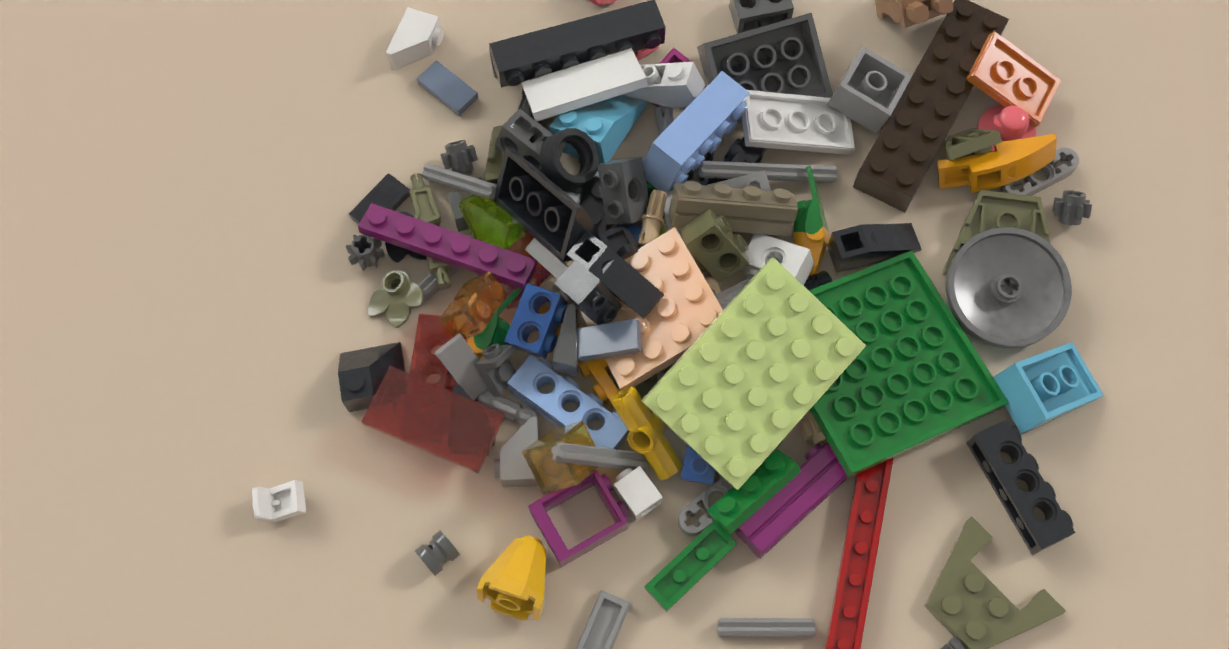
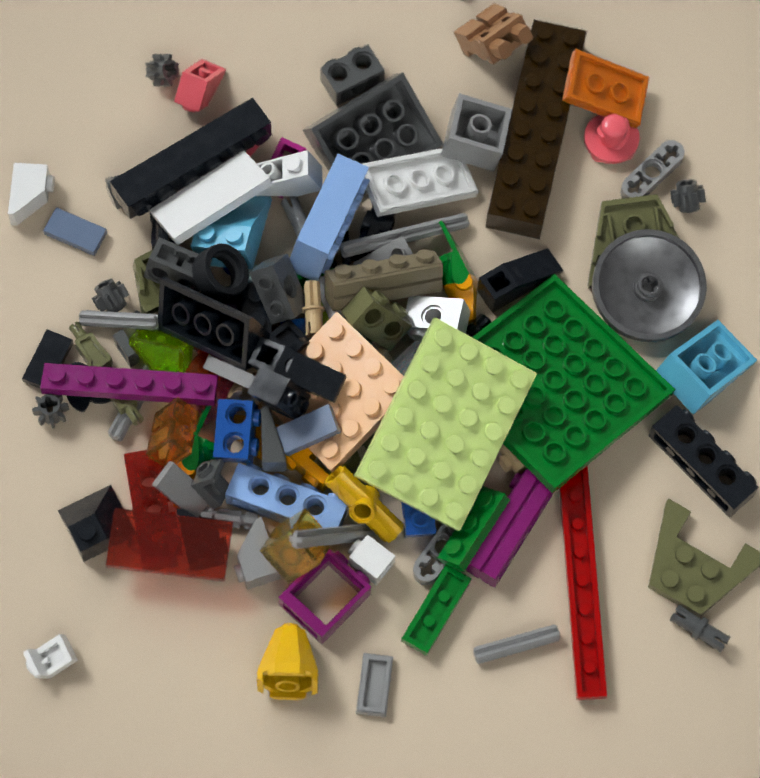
camera: 20 degrees left, 0 degrees up
(396, 301) = (94, 449): olive plate -> none
(437, 552) = (208, 662): dark grey wheel -> none
(971, 141) = (580, 158): olive wing -> none
(994, 169) = (620, 171): light orange slope -> none

